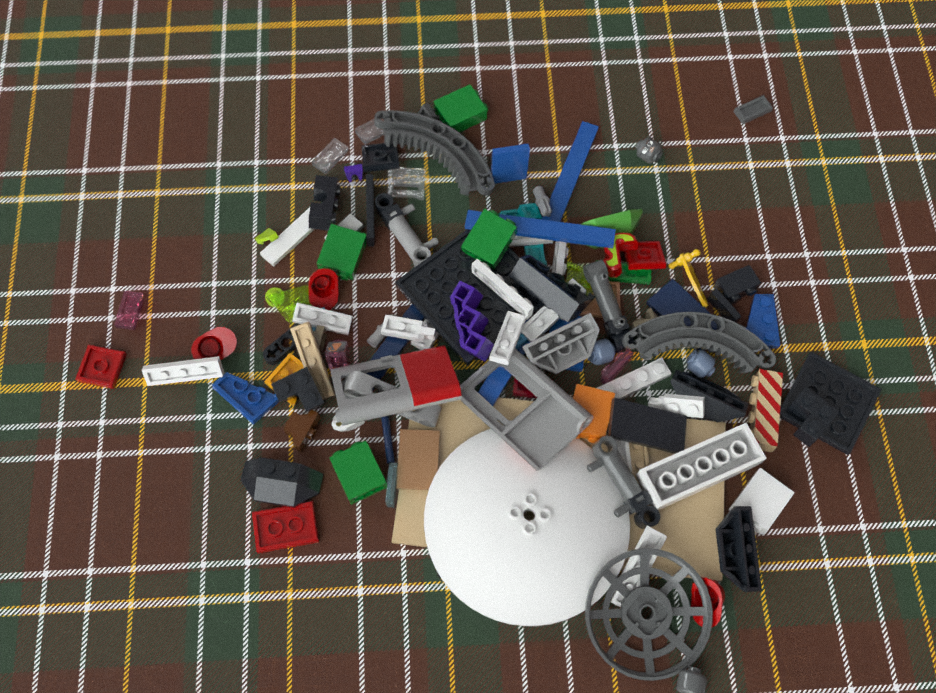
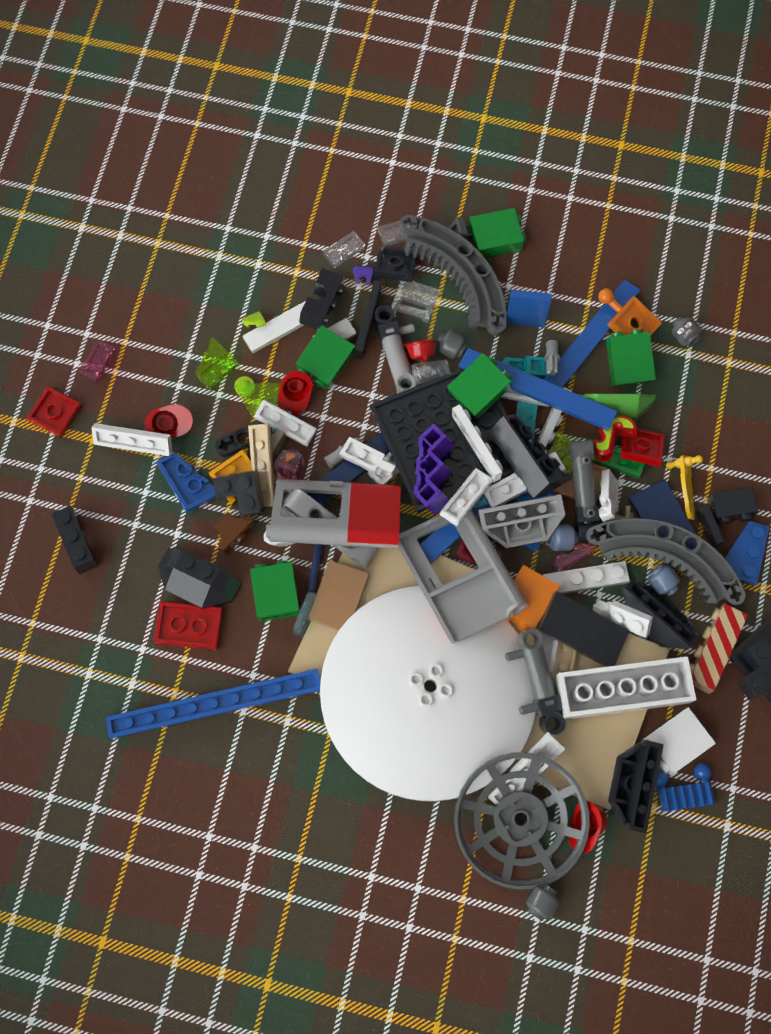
camera: 20 degrees right, 5 degrees up
(153, 478) = (75, 543): none -> black arch
(242, 284) = (215, 365): none -> clear neon green wing
(329, 593) = (213, 704): none -> blue plate
(426, 222) = (421, 349): none -> red piece
(438, 239) = (430, 370): none -> clear plate
(451, 212) = (451, 344): none -> dark grey head
(592, 157) = (631, 310): none -> orange plate
(610, 184) = (630, 358): none -> green brick
(630, 304) = (608, 496): none -> white hinge
(785, 546) = (688, 795): none -> blue gear

